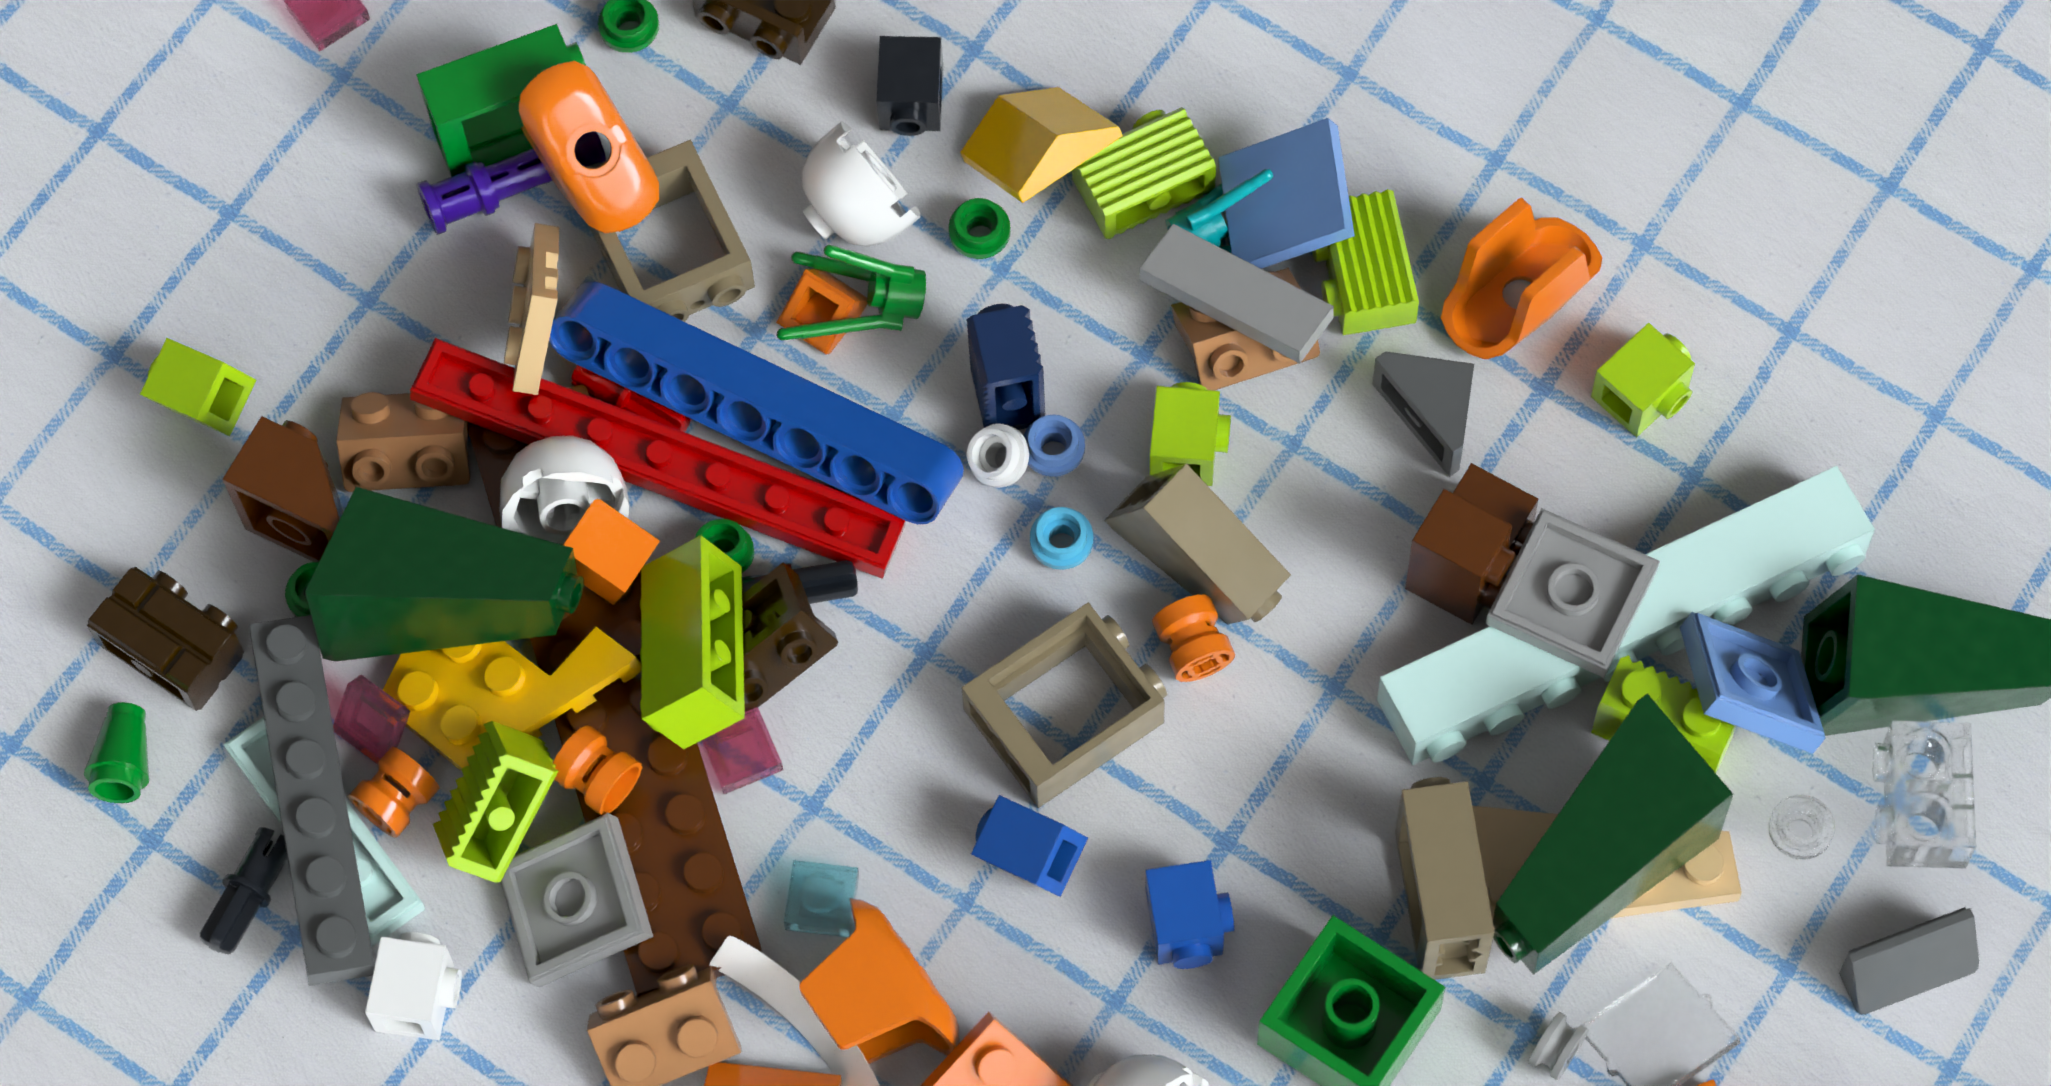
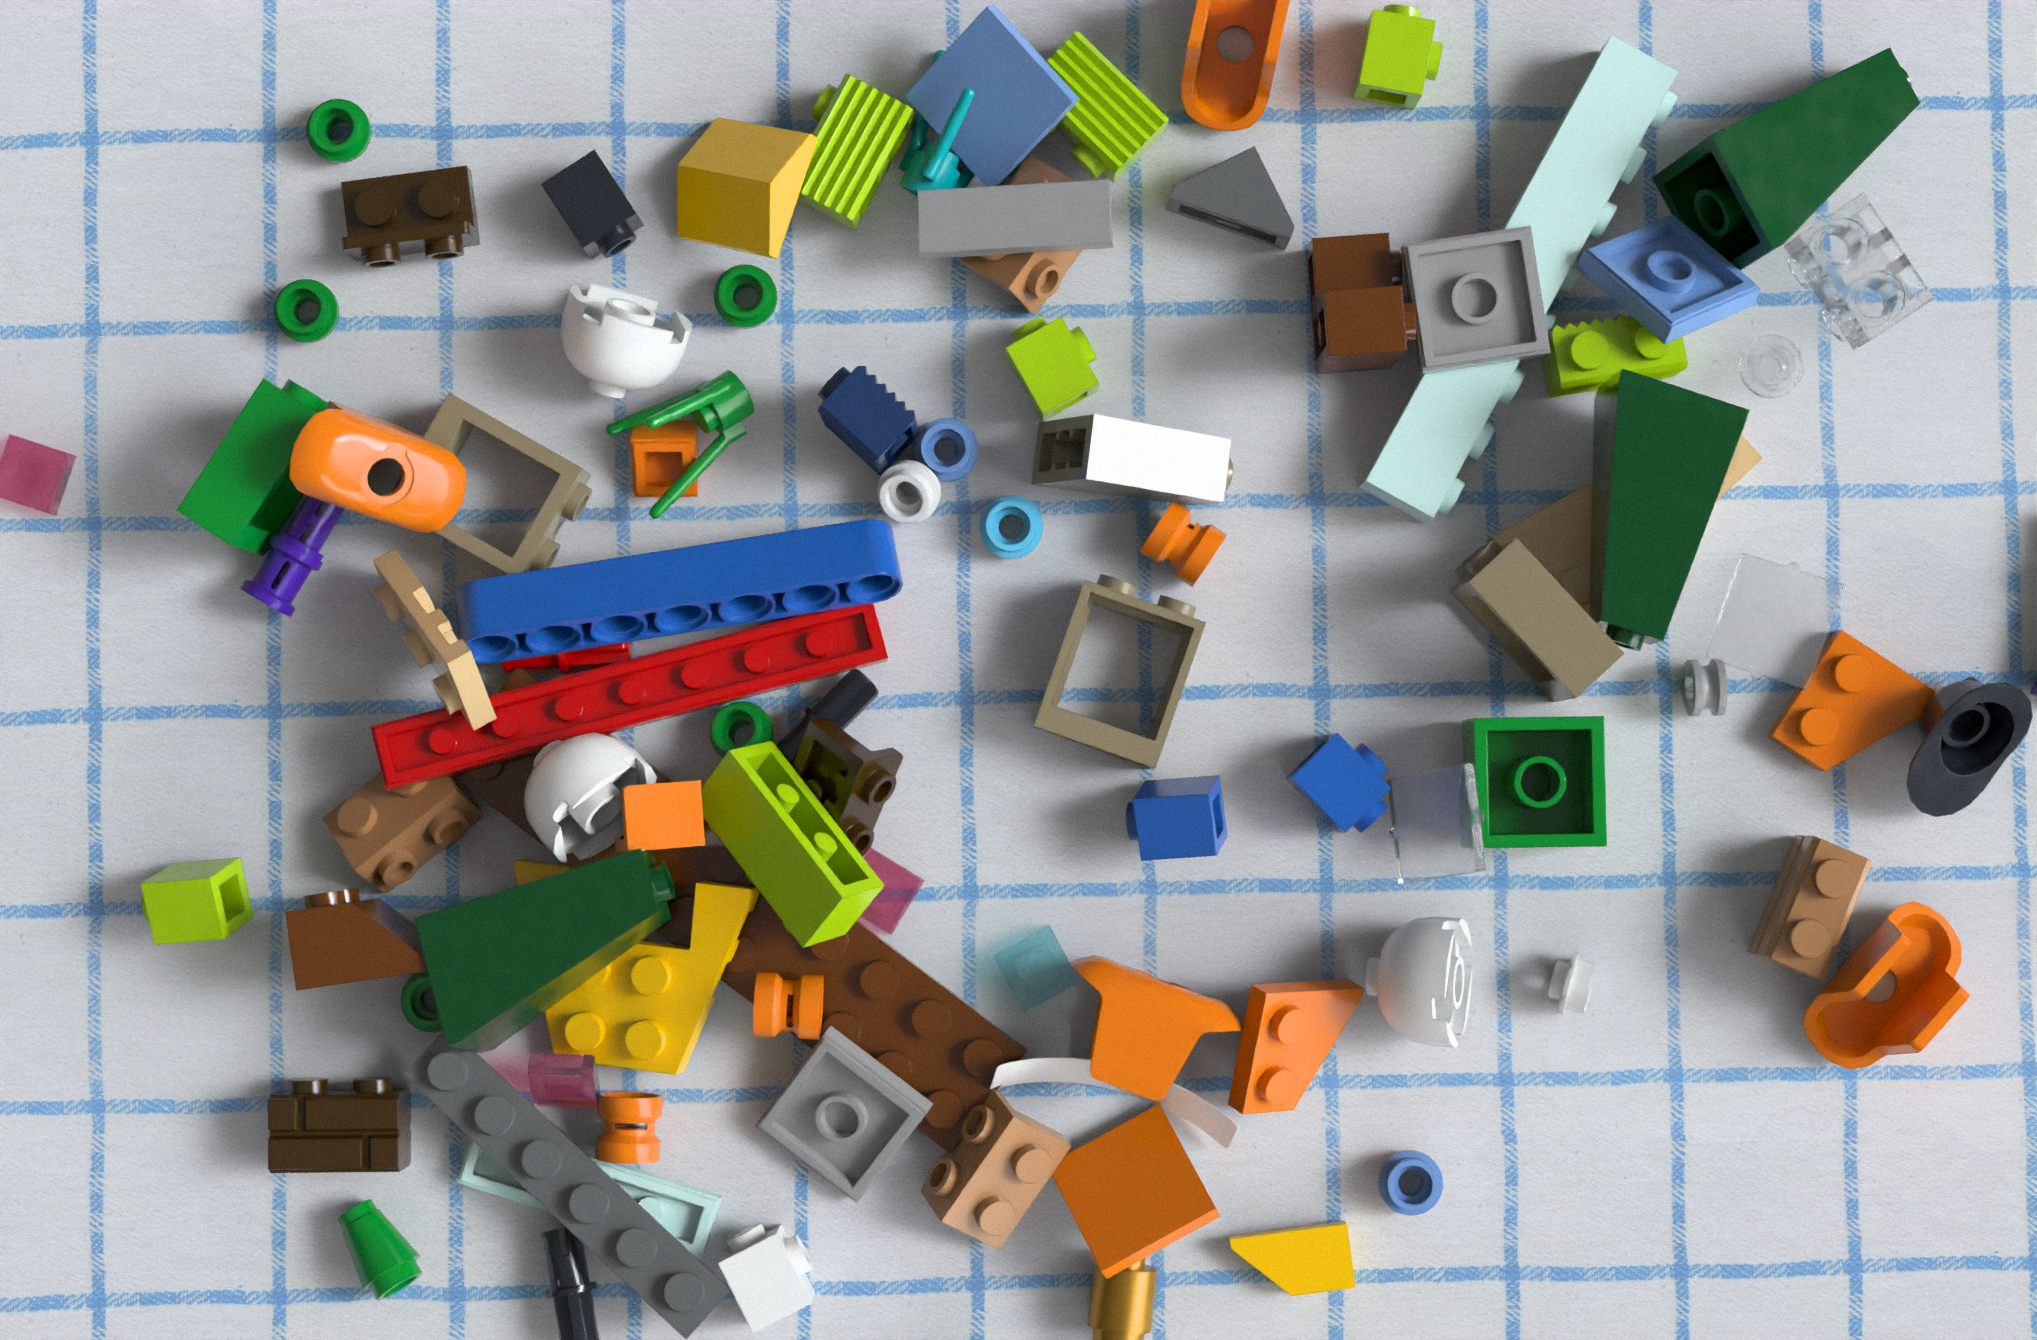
camera: 40 degrees left, 20 degrees up
(495, 801) = (725, 1089): lime brick -> none
(1241, 993) = (1436, 824): none -> clear piece
(1911, 961) = (1929, 422): slope -> none

